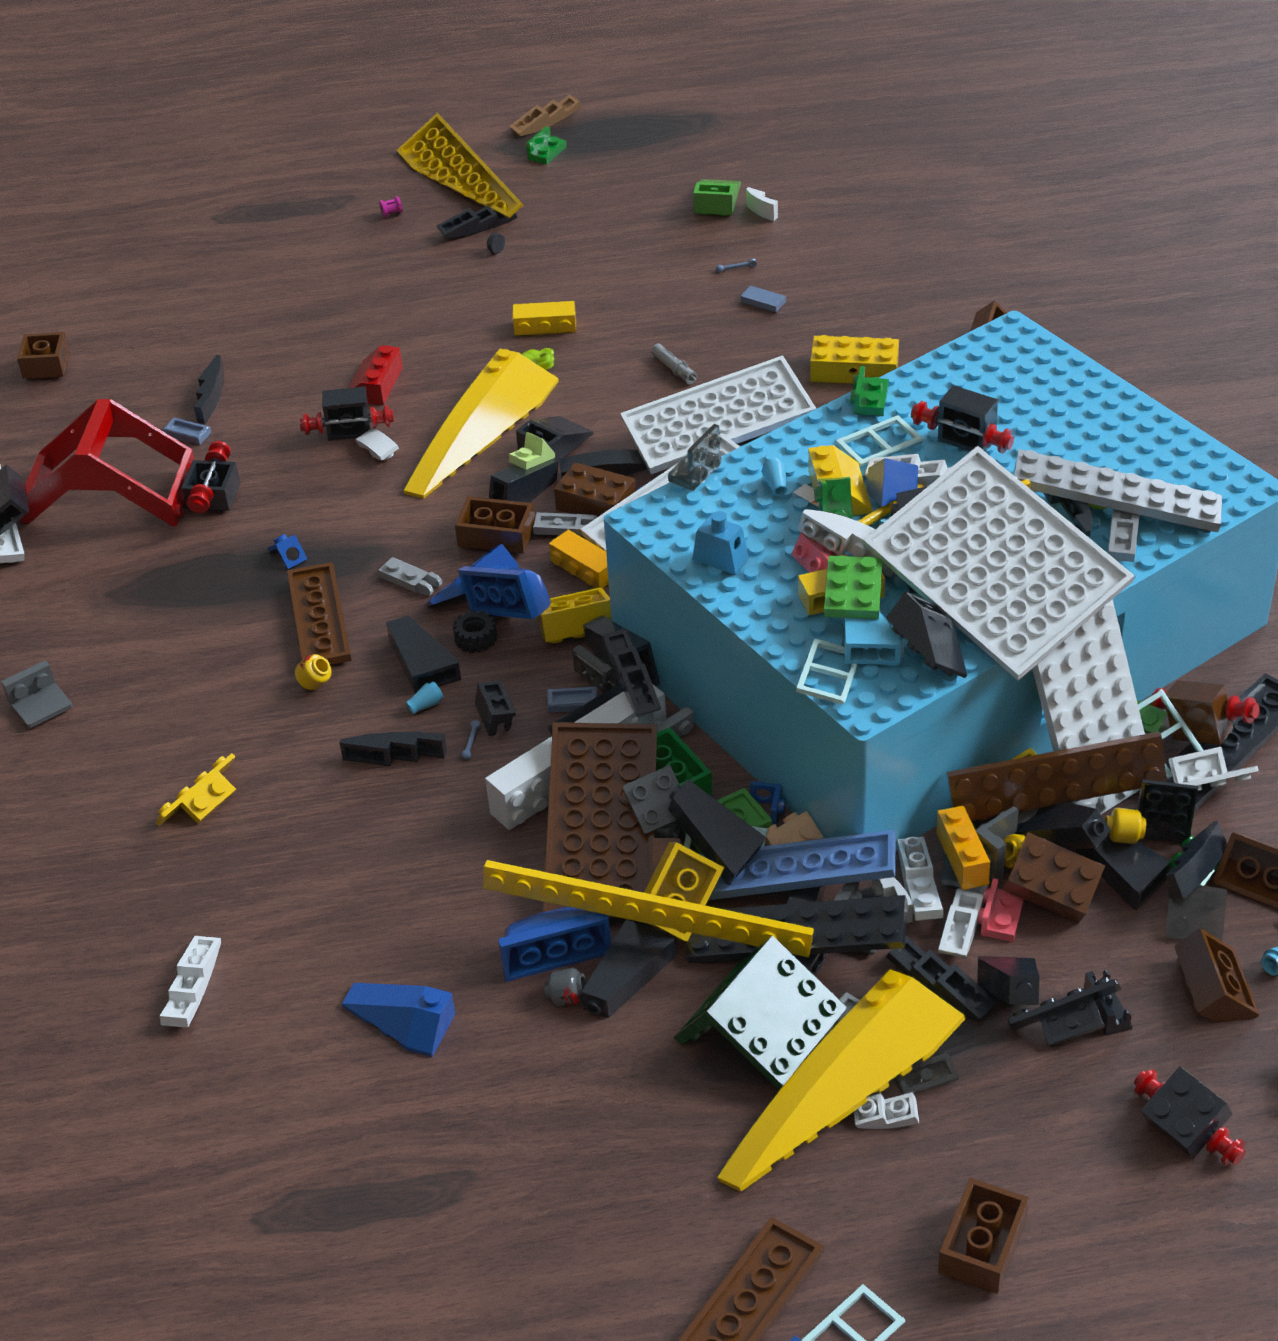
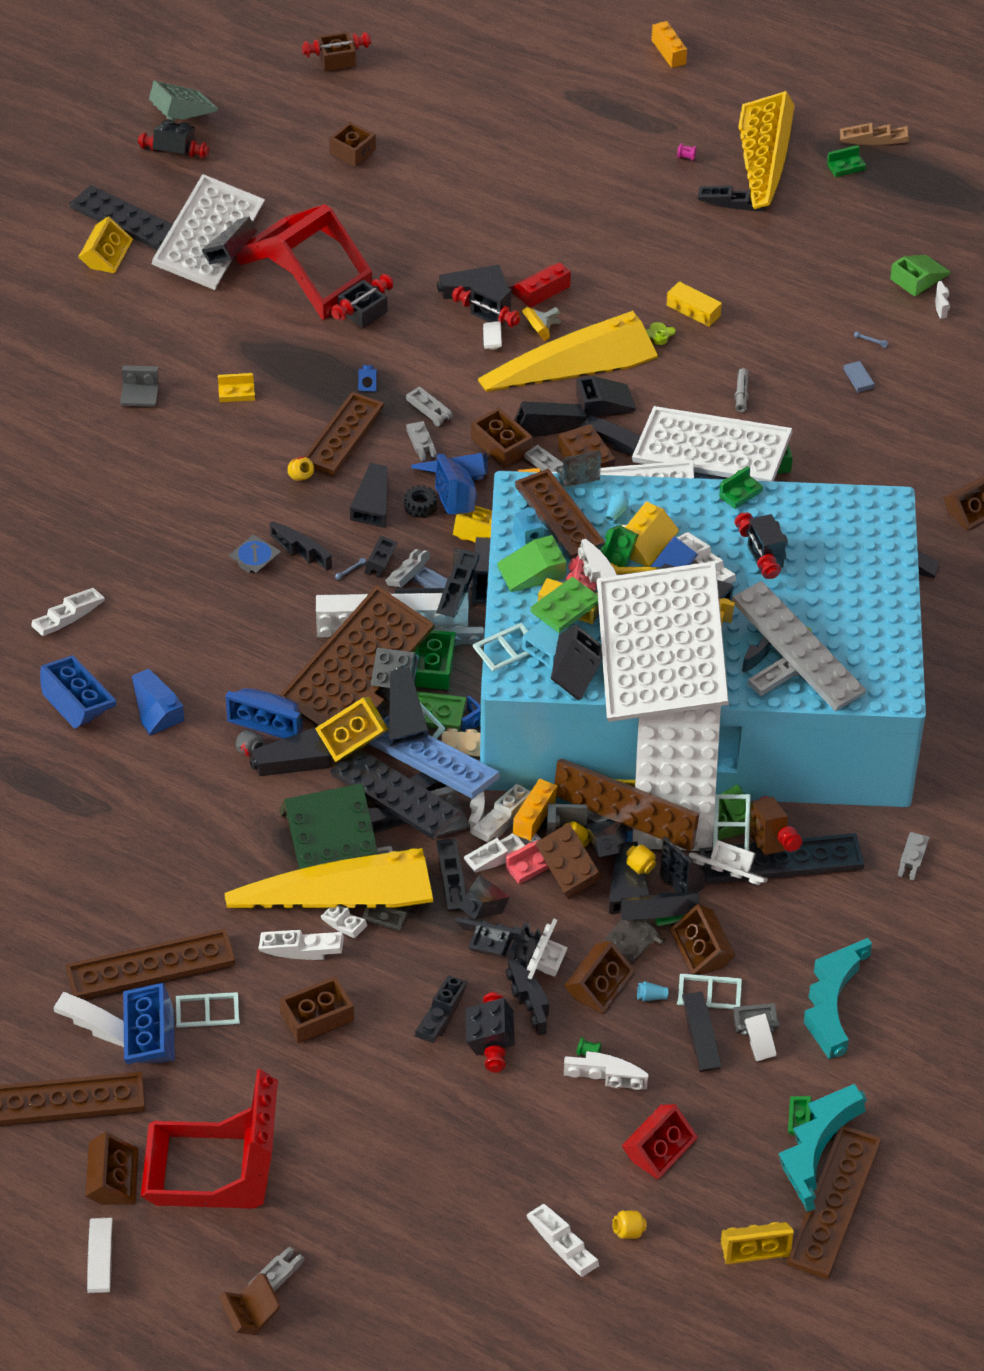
camera: 35 degrees right, 5 degrees up
(150, 637) = (236, 387): none -> yellow bracket
(187, 431) = (391, 254): sand blue tile -> none
(205, 796) = (172, 508): yellow bracket -> none
(210, 390) = (432, 231): black slope -> none
(276, 135) = (669, 44): none -> light orange brick
(284, 422) = (468, 278): none -> black slope
(301, 1063) = (74, 691): none -> blue windscreen
(351, 787) = (254, 554): none -> piece
(383, 540) = (429, 406): none -> light grey plate
(413, 407) = (542, 321): none -> piece
(426, 697) = (349, 526): medium azure cone -> none
(495, 243) = (725, 224): black tile -> none
(534, 452) = (567, 402): yellowish green slope -> none
(536, 702) = (408, 568): none -> light grey hinge
(645, 907) = (319, 726): yellow plate -> none
(692, 505) = (558, 512): none -> reddish brown plate
(760, 574) = (533, 564): none -> bright green slope
(841, 357) = (859, 459): yellow brick -> none
(871, 431) = (710, 513): light aqua window -> none
(878, 1173) = (298, 946): none -> white slope
(1107, 1134) = (442, 1009): none -> black slope
(1141, 989) = (549, 955): none -> white bracket
(1169, 1044) = (530, 993): none -> black slope

